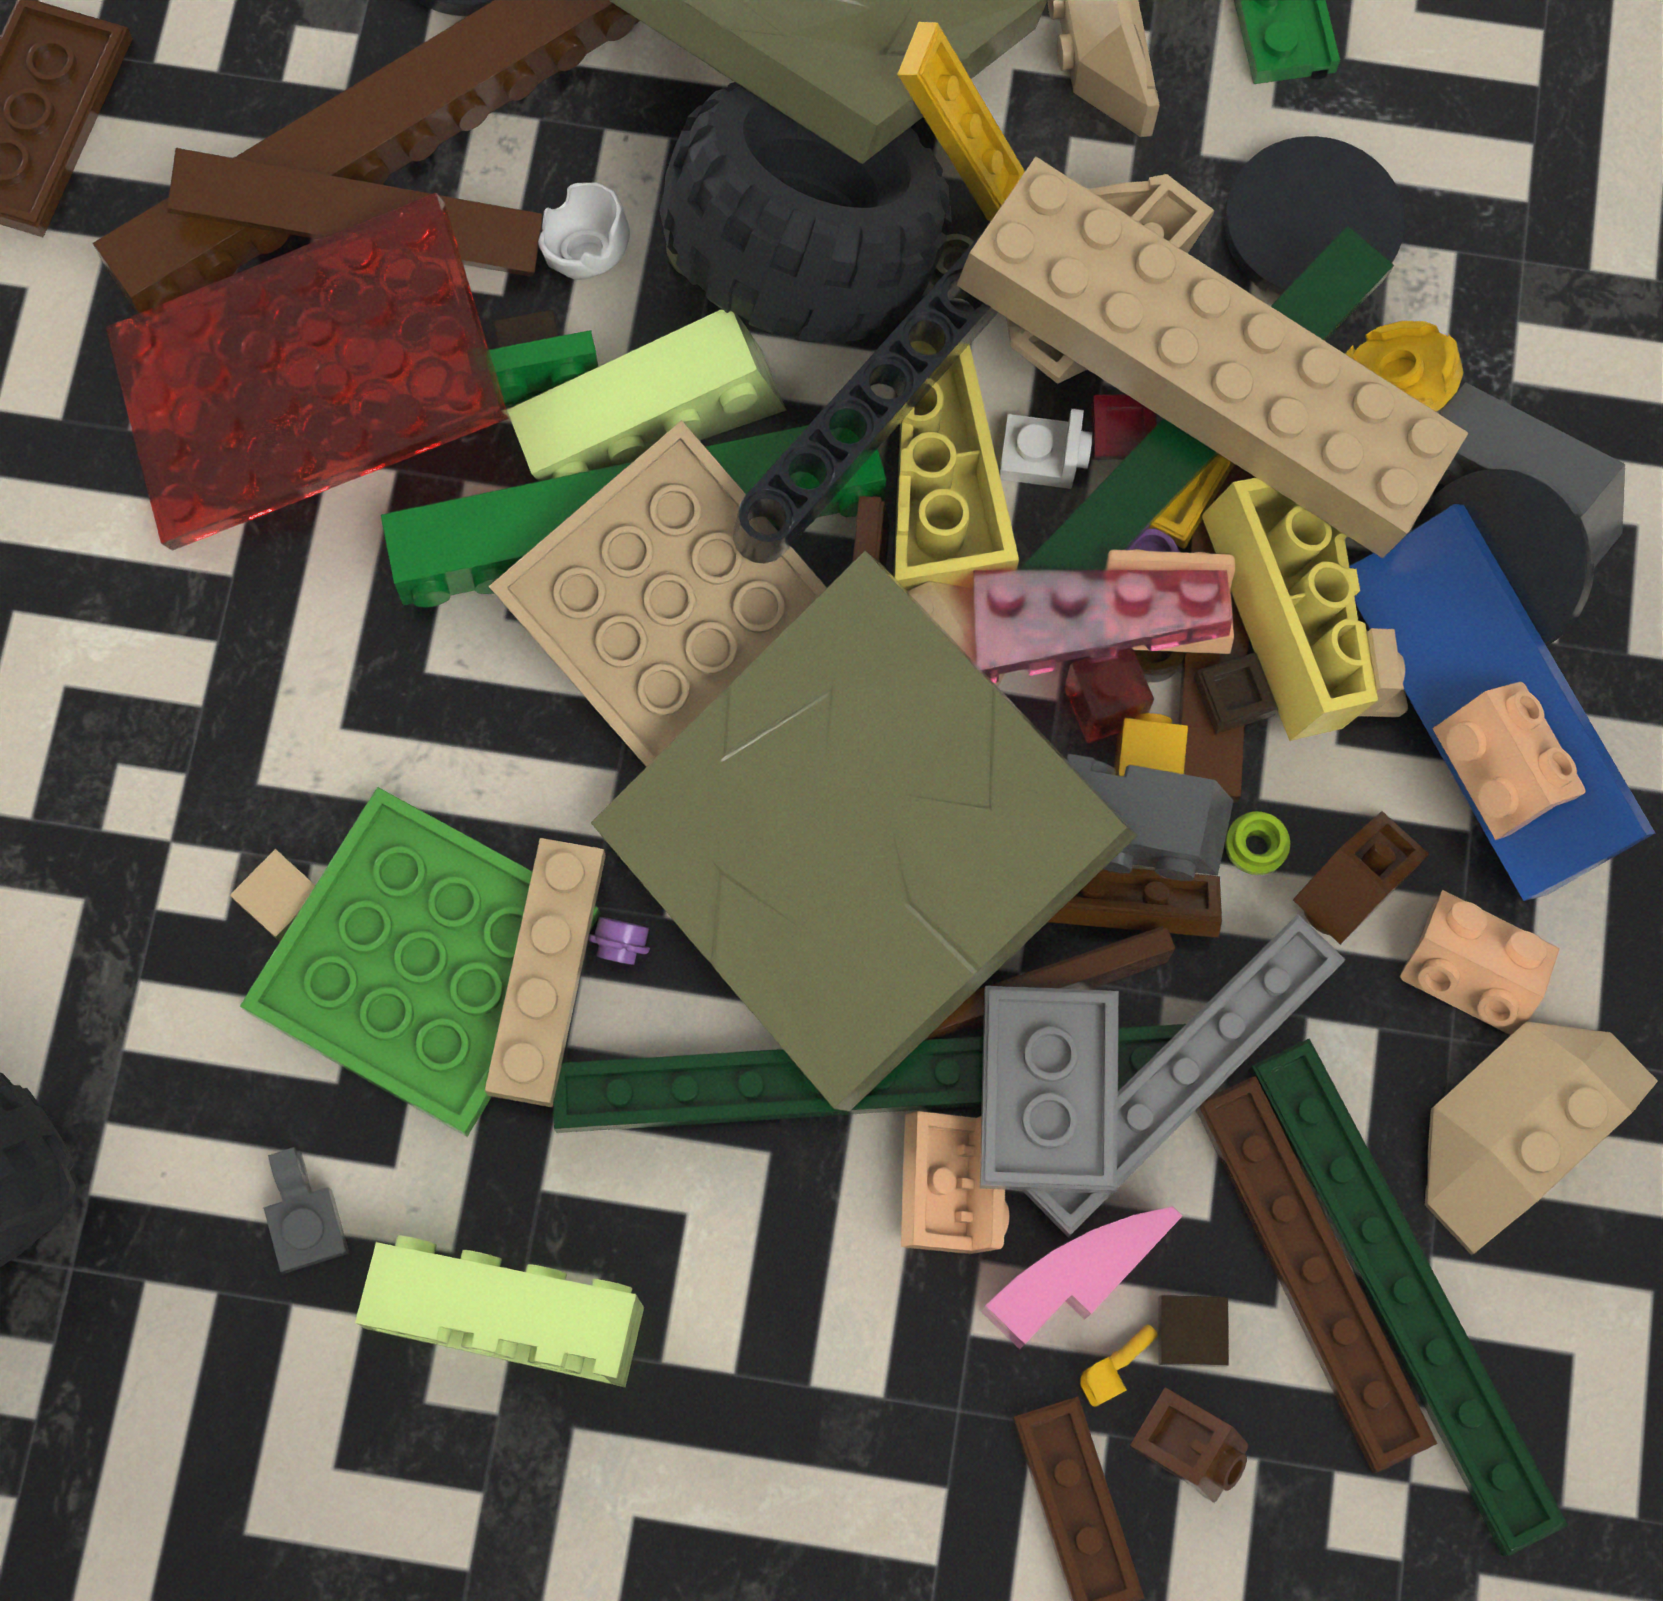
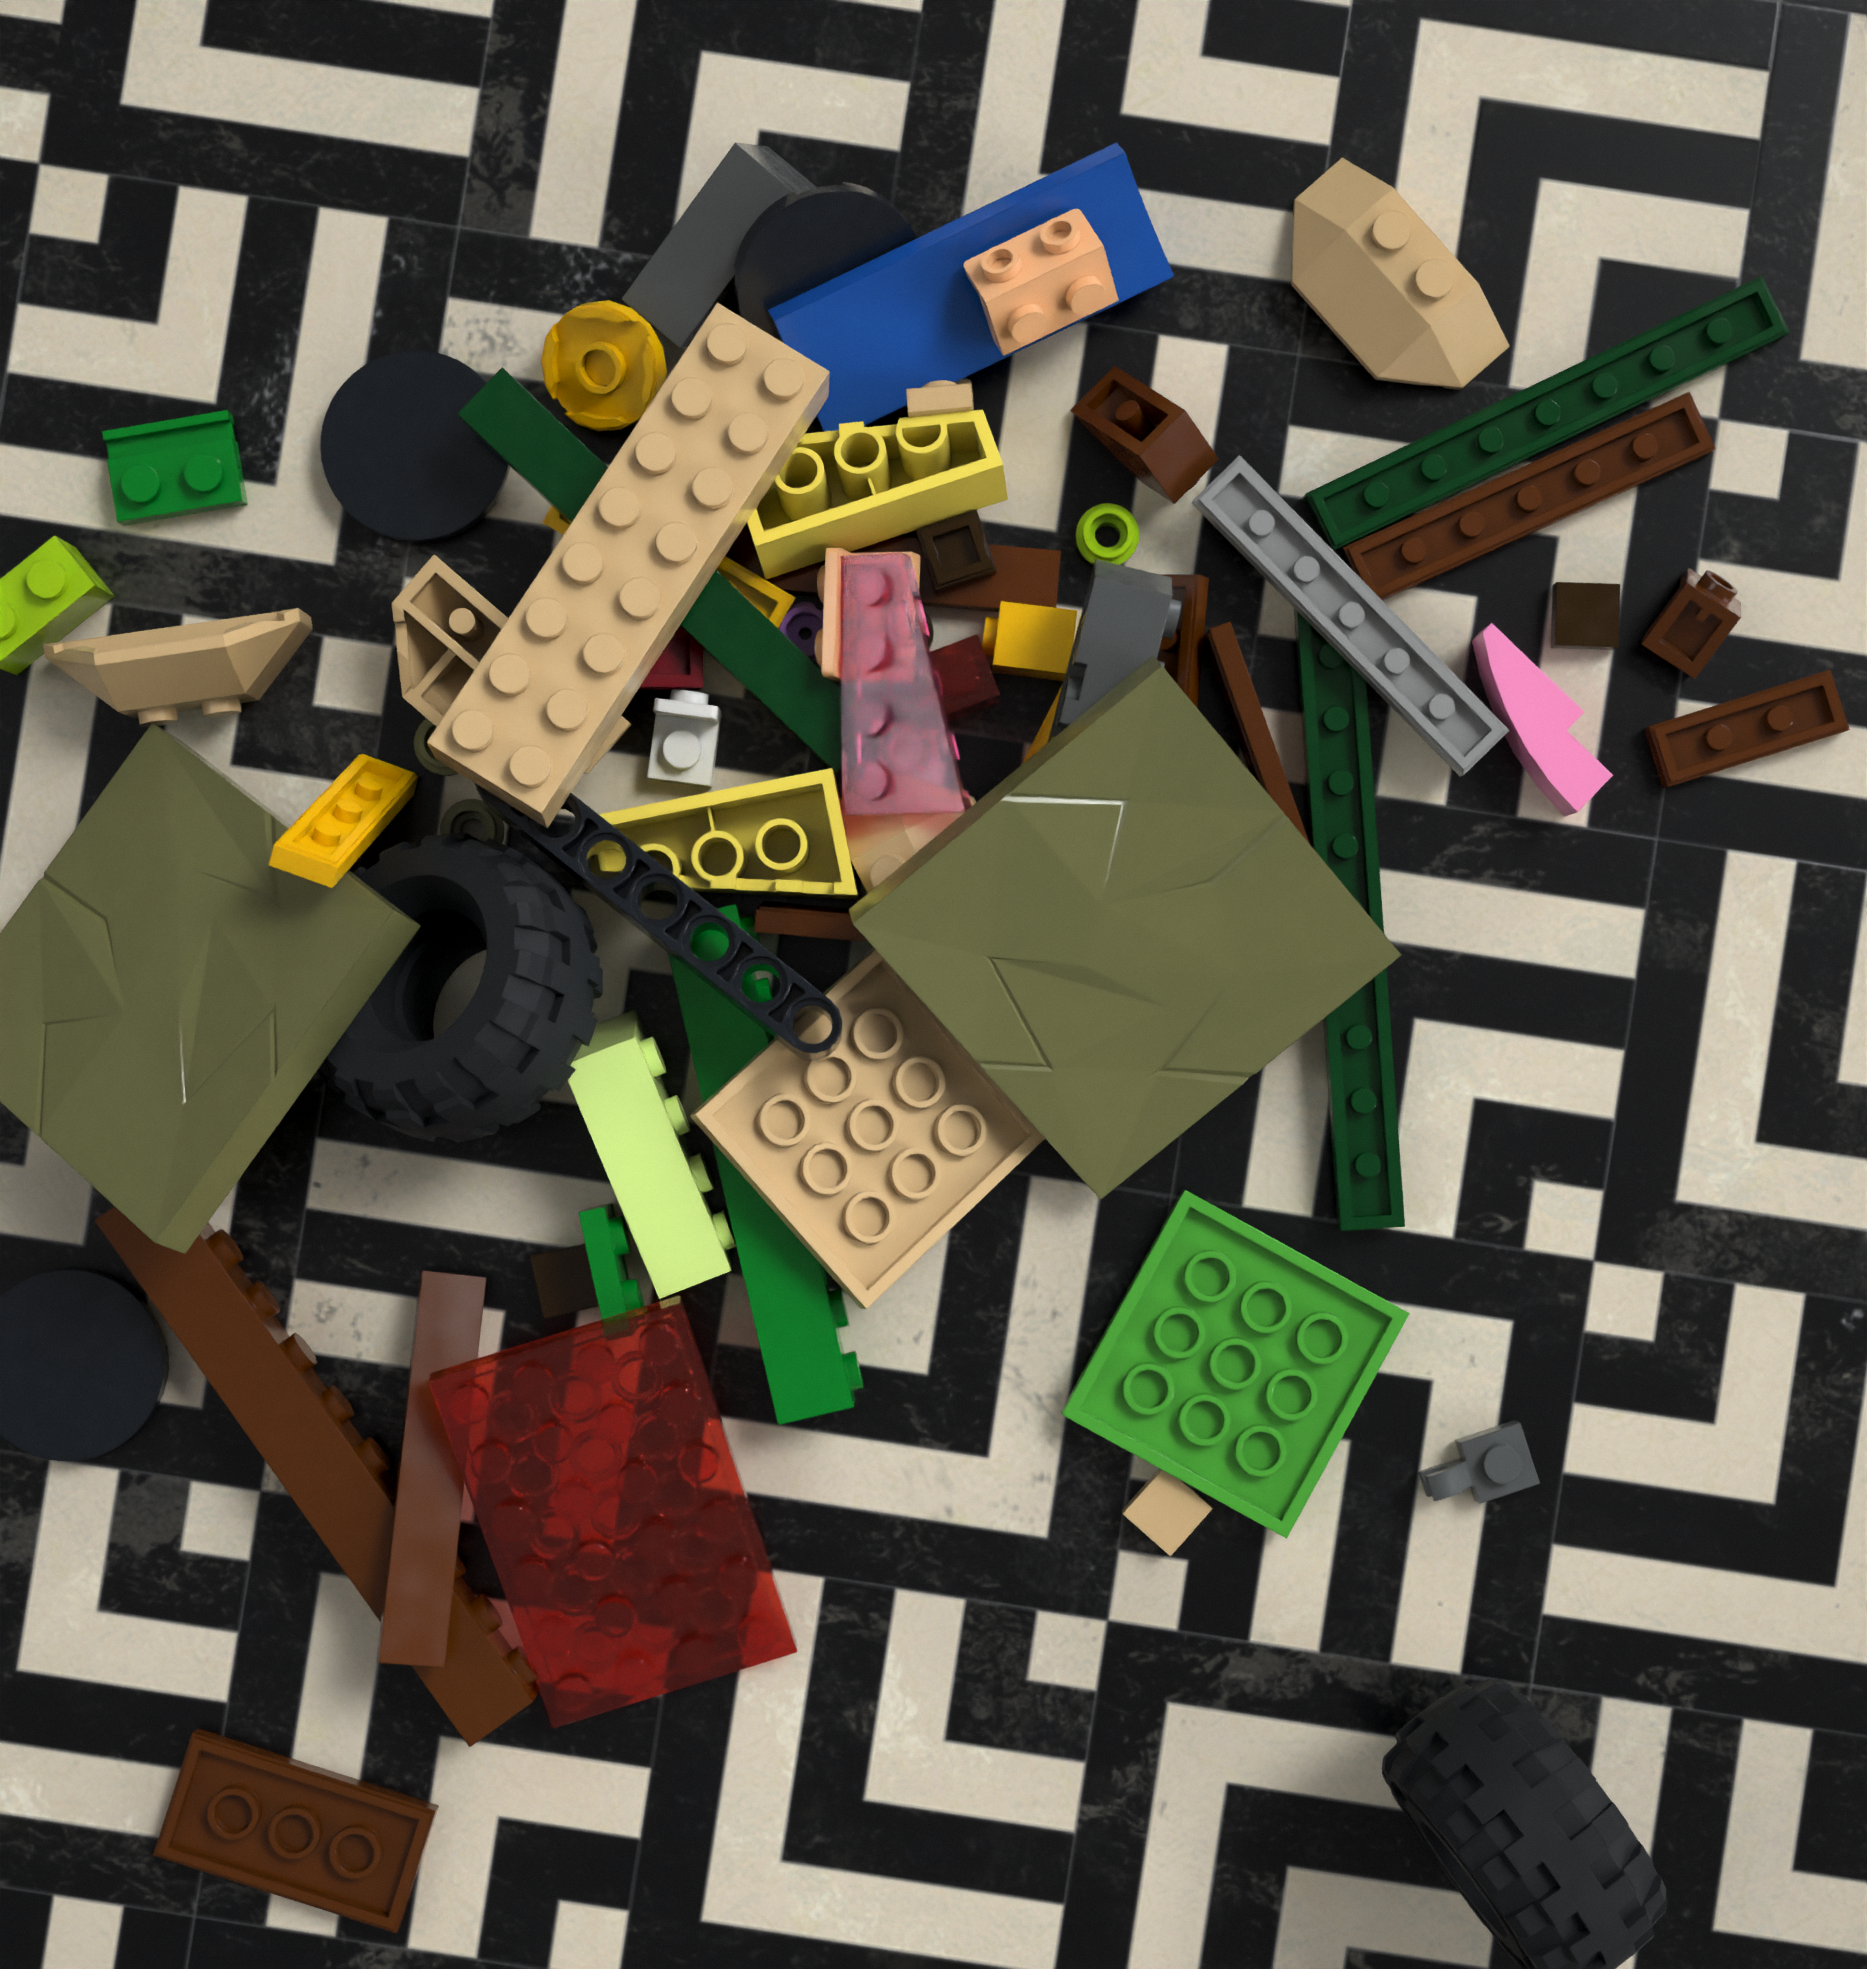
camera: 90 degrees left, 15 degrees up
(501, 1311) = (1581, 1269): yellowish green wedge -> none
(545, 973) = (1254, 1239): tan plate -> none
(585, 232) = (445, 1225): white hair -> none
(619, 940) = (1212, 1168): medium lavender plate -> none
(942, 1187) = (1452, 840): light nougat bracket -> none
(1049, 1090) = (1375, 747): light grey tile -> none
(1102, 1379) = (1628, 704): yellow hand -> none
(1480, 964) = (1229, 320): light nougat bracket -> none

